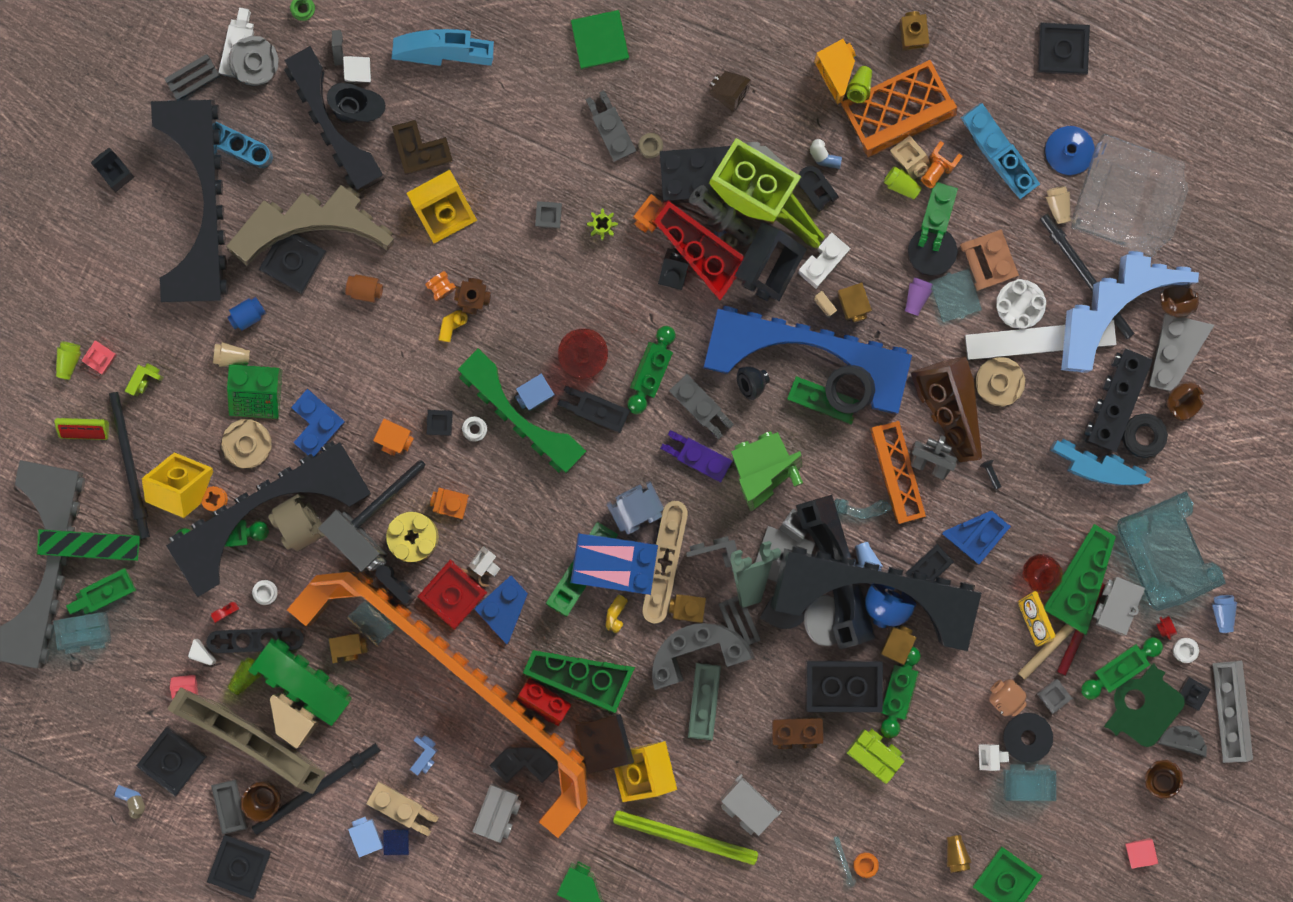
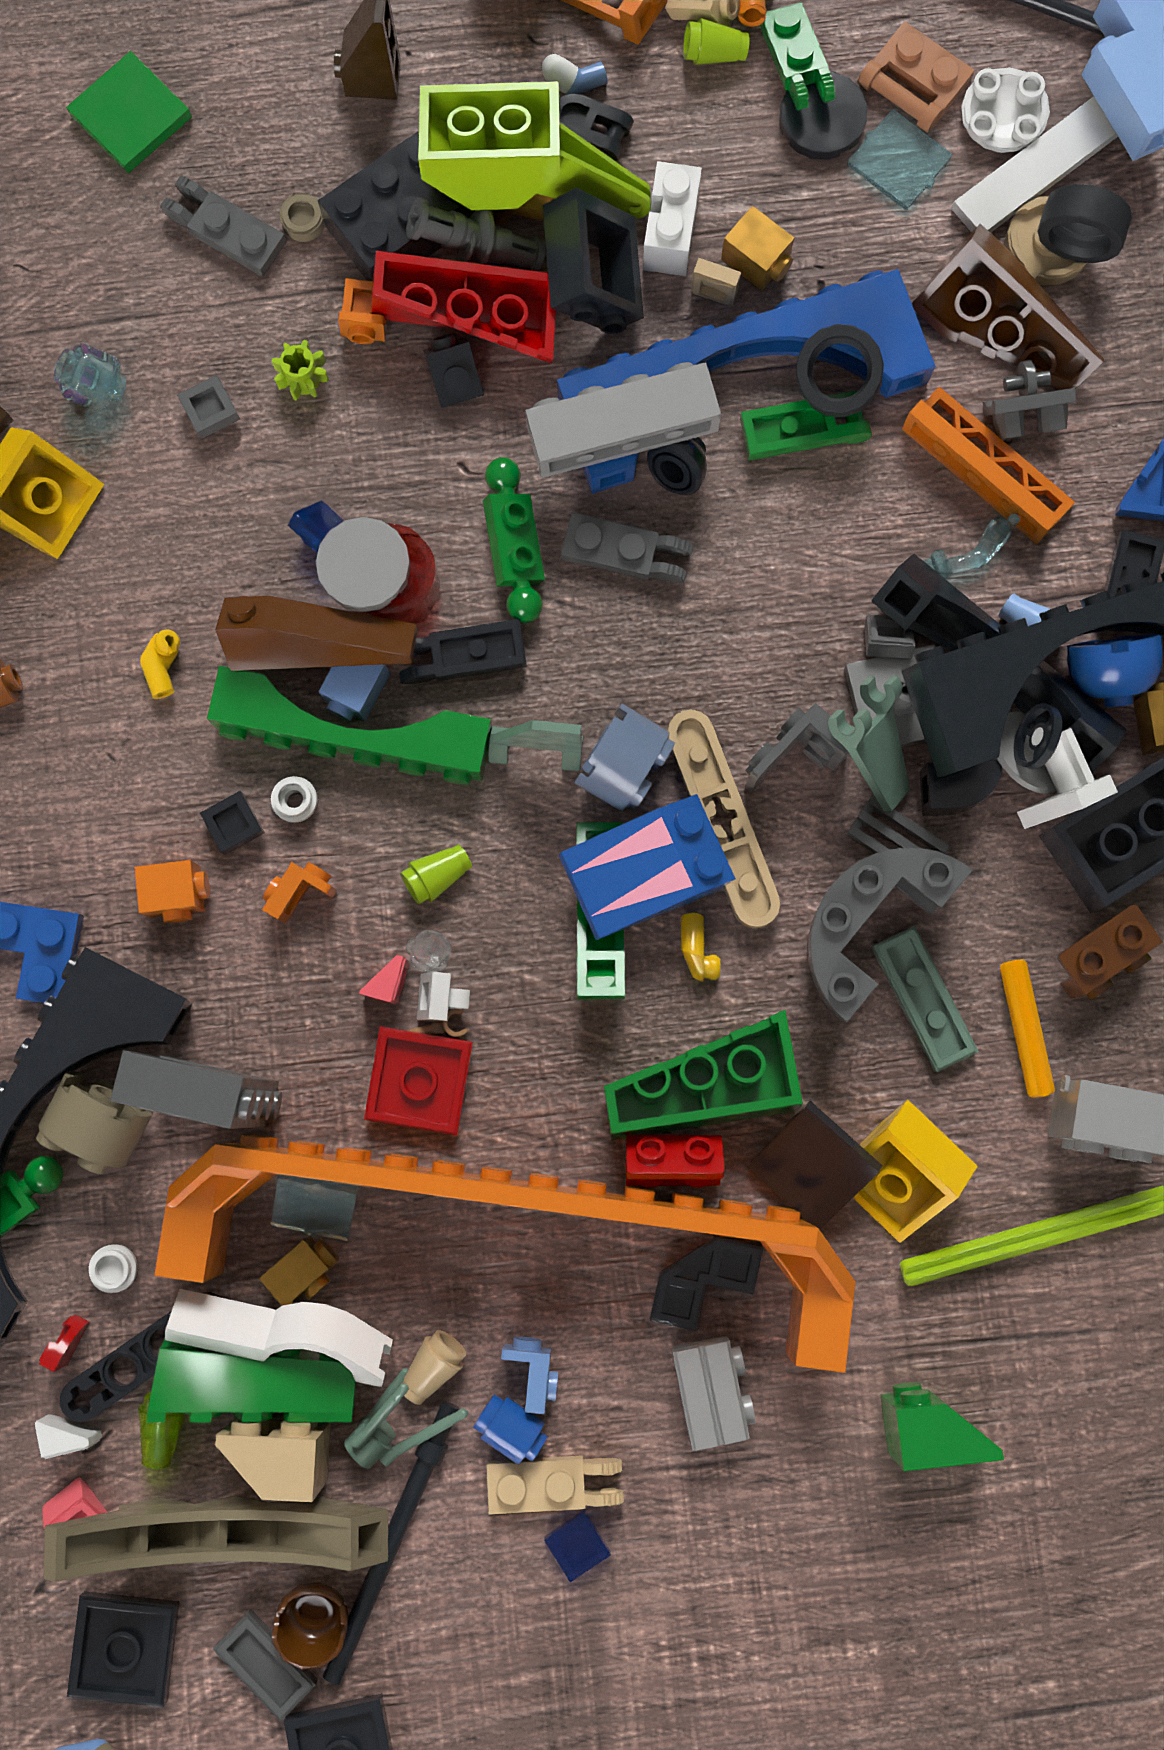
camera: 30 degrees left, 5 degrees down
(317, 663) = (261, 1331): none -> white piece
(336, 739) = (374, 1434): none -> sand green plant
(365, 836) = (521, 1572): light blue brick -> none
(381, 724) = (433, 1365): none -> tan cone
(388, 494) = (217, 983): black bar -> none
(398, 773) = (510, 1429): none -> blue brick
(401, 527) = (269, 1028): light yellow brick -> none
(401, 590) = (327, 1123): black plate -> none
(440, 286) = (104, 612): orange wheel -> none
(444, 471) = (286, 892): none -> orange bracket
(449, 503) = (324, 939): orange bracket -> none
(465, 542) = (389, 982): none -> coral slope
(472, 306) = (163, 595): reddish brown brick -> none
(492, 539) = (429, 951): none -> clear plate
(501, 167) = (89, 376): none -> clear light blue head
(503, 608) = (514, 1051): blue wing -> none
(517, 504) = (435, 873): none -> lime cone
(528, 359) = (300, 634): none -> reddish brown wedge
(565, 307) = (314, 523): none -> clear blue plate
(571, 345) = (363, 564): none -> light grey tile
(615, 486) = (539, 735): none -> sand green flag
(687, 608) = (804, 868): pearl gold bracket -> none
(699, 457) = (670, 627): dark purple hinge -> none
(732, 351) = (623, 418): none -> light grey brick
(741, 743) = (1027, 1028): none -> light orange axle
(764, 467) = (782, 570): bright green piece -> none
(829, 651) = (1064, 764): none -> white piece
(917, 295) = (845, 187): medium lavender cone -> none
(991, 473) = (1117, 371): black piece -> none
(1010, 390) = (1084, 223): none -> black tyre

